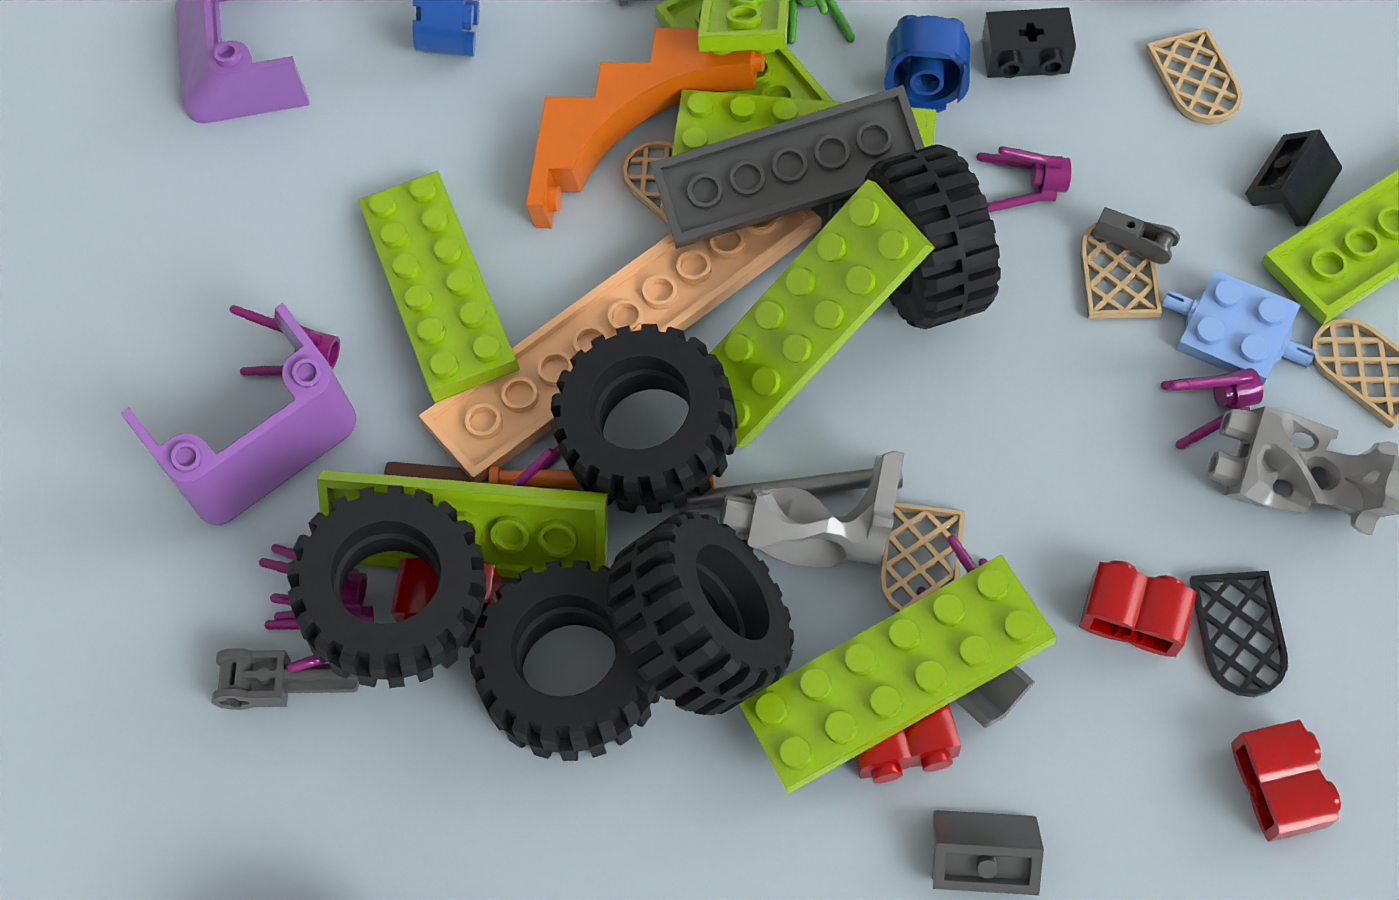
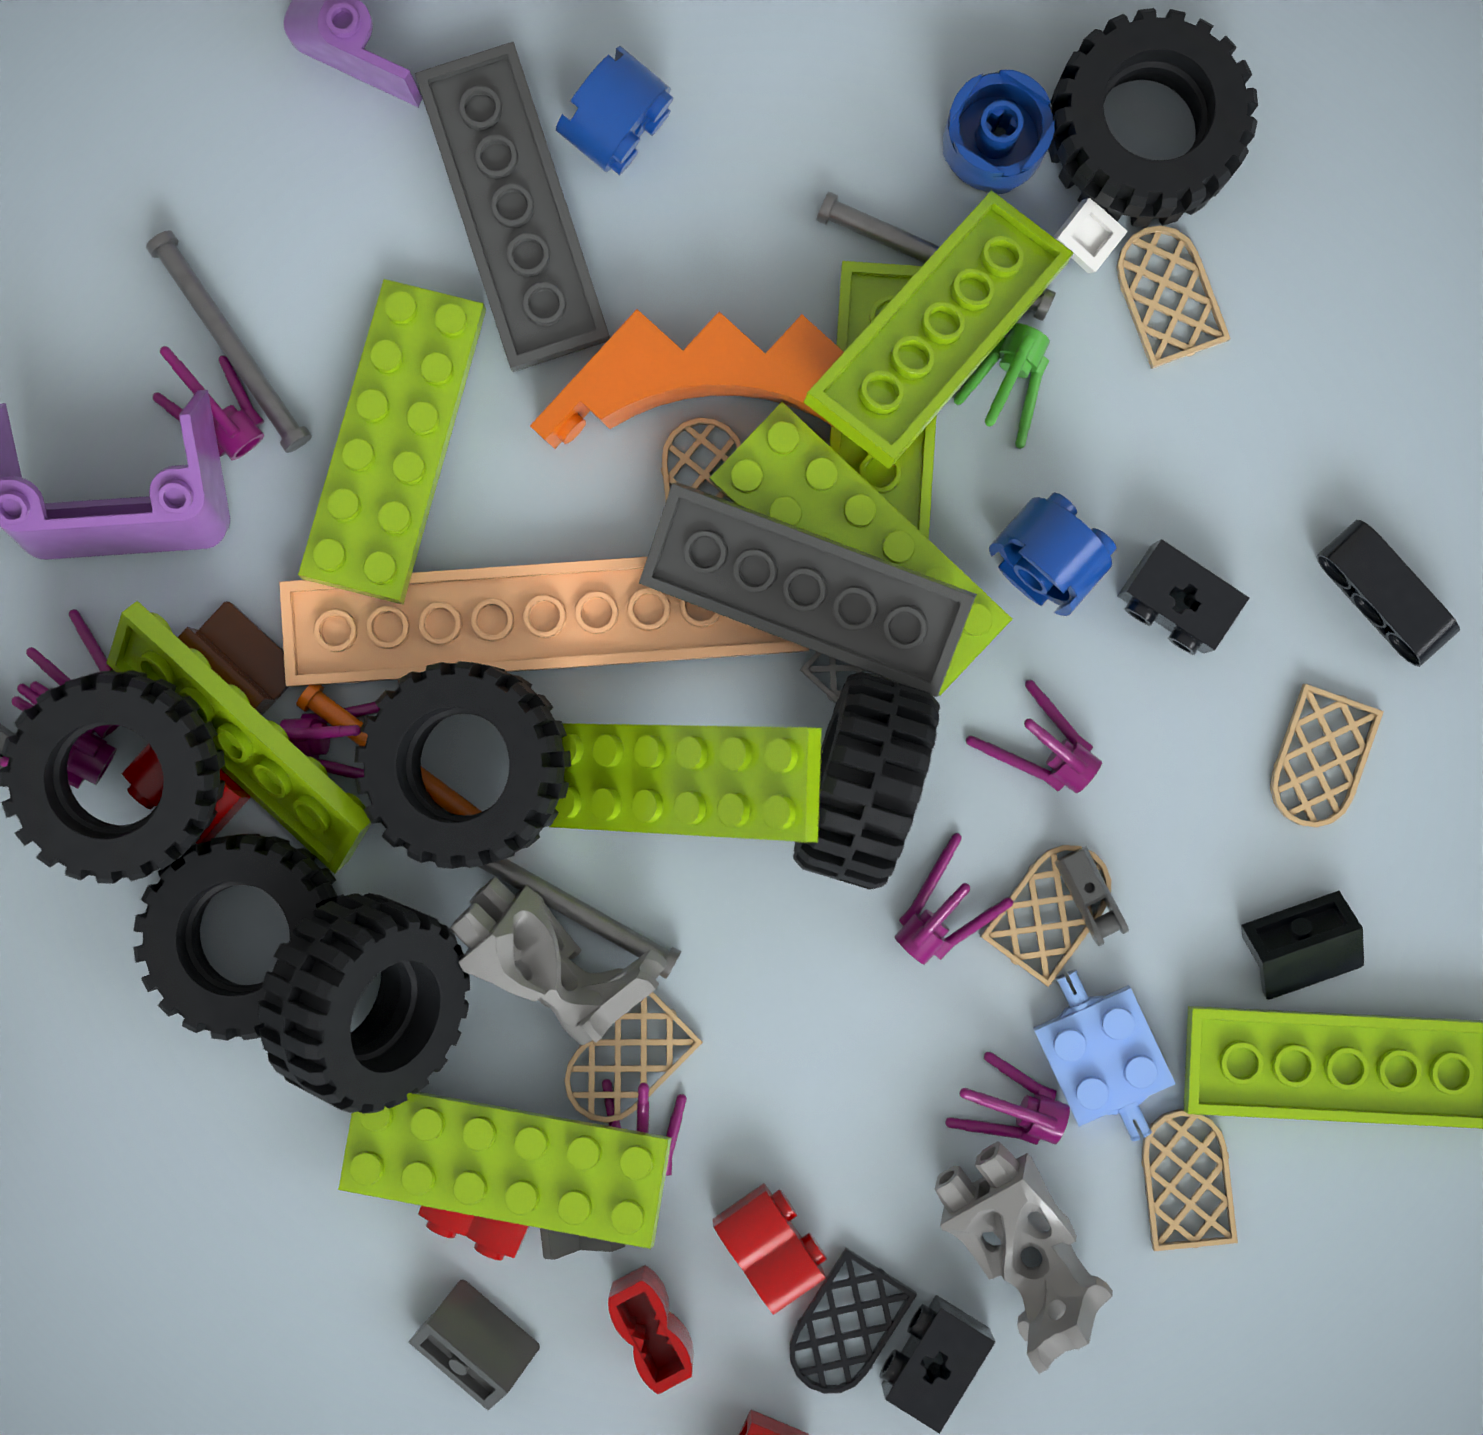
camera: 30 degrees right, 25 degrees up
(186, 278) = (164, 247): none -> flat silver bar
(418, 111) = (512, 207): none -> dark grey plate
(1051, 333) = (924, 933): none -> magenta plant
(1119, 727) = (659, 1339): none -> red brick
(1327, 600) = (935, 1392): none -> black brick

